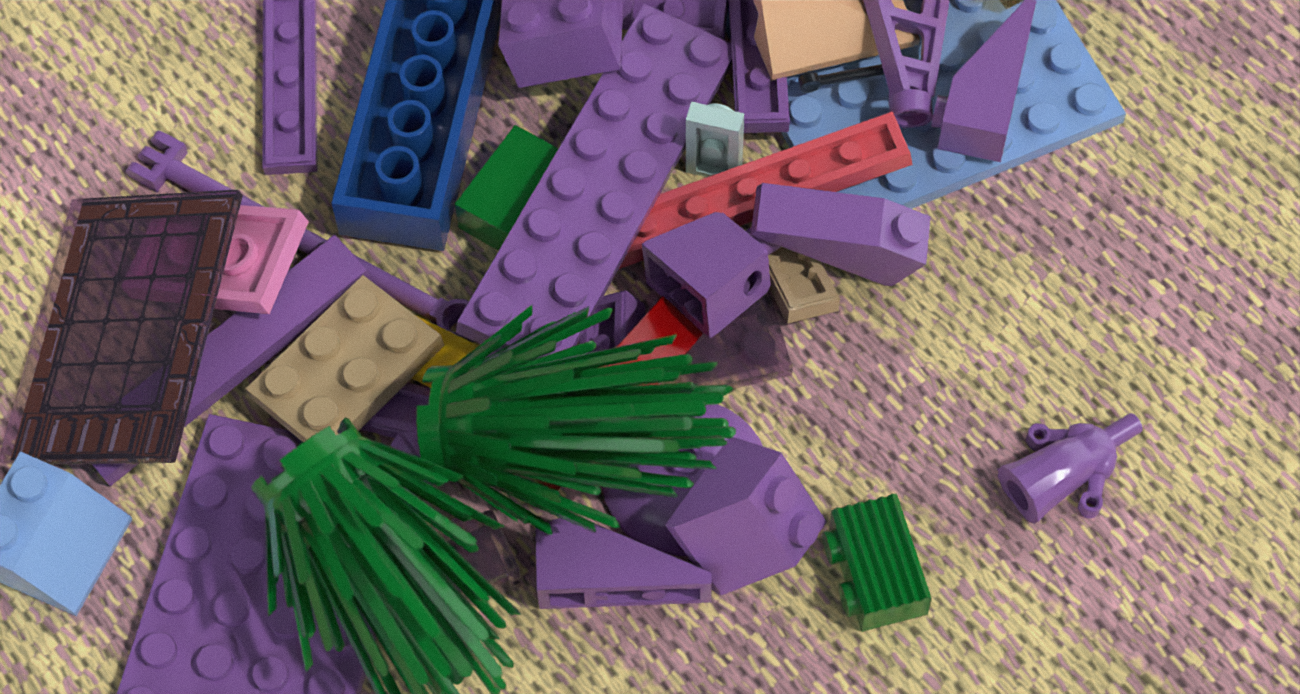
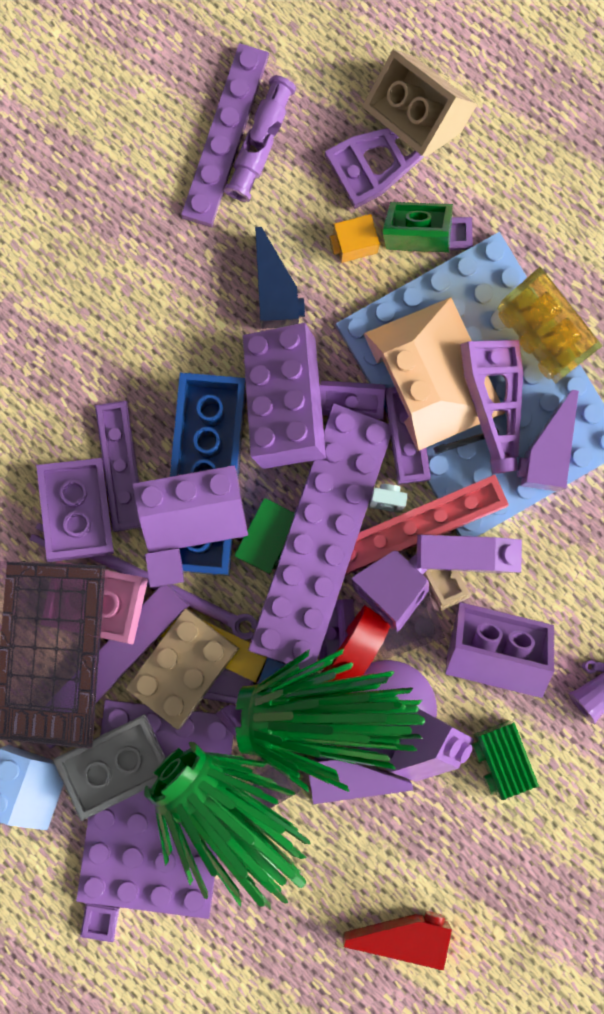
camera: 10 degrees left, 20 degrees up
(195, 509) = (112, 769): none -> light grey tile
(206, 124) = (74, 510): none -> medium lavender plate
(338, 197) = (164, 568): none -> medium lavender tile
(392, 109) = (190, 509): none -> medium lavender slope
(883, 394) = (501, 650): none -> medium lavender slope

